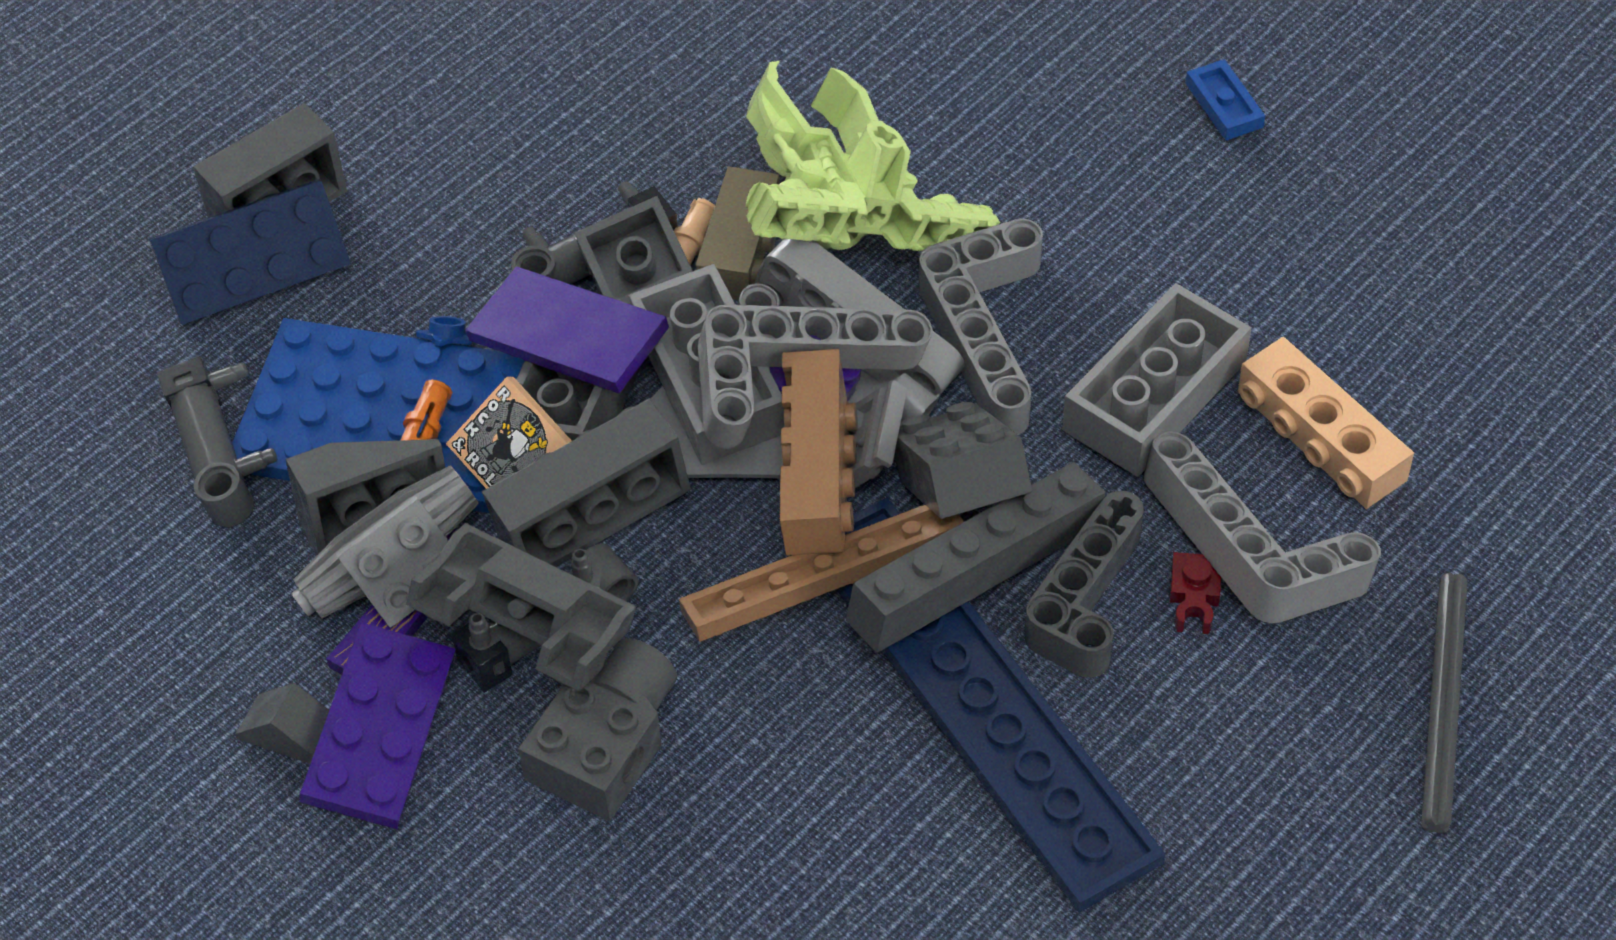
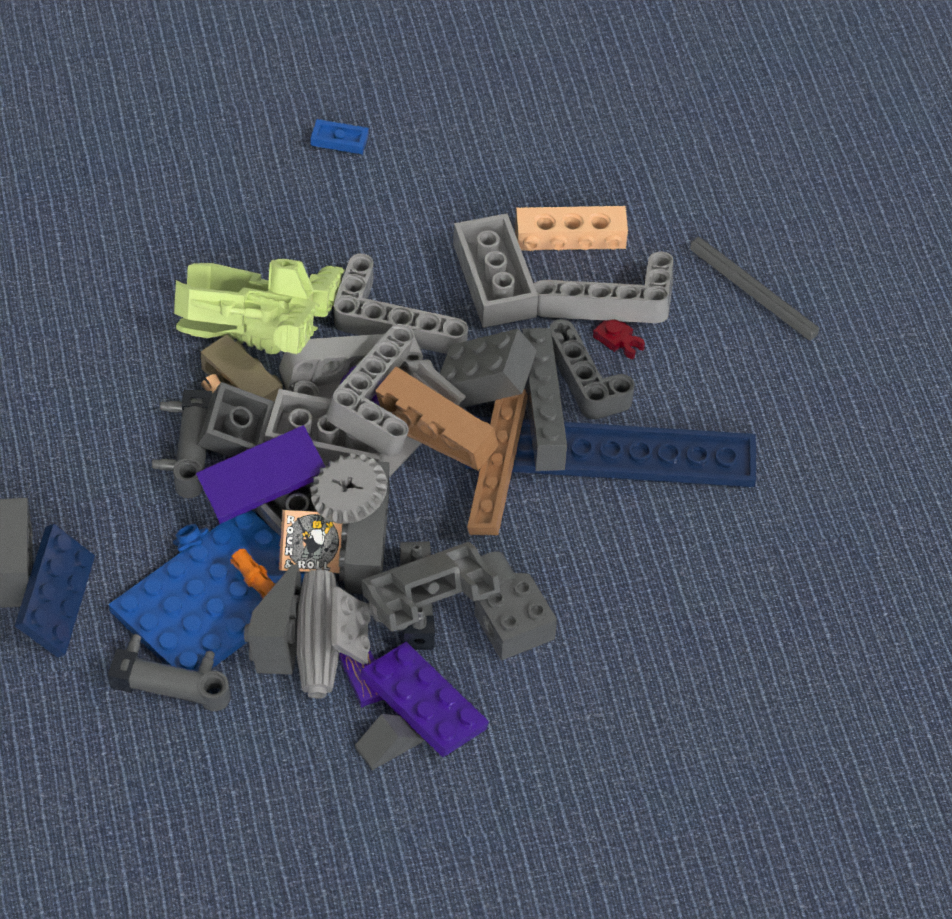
camera: 60 degrees left, 0 degrees up
(621, 421) = (355, 503): none -> light grey gear

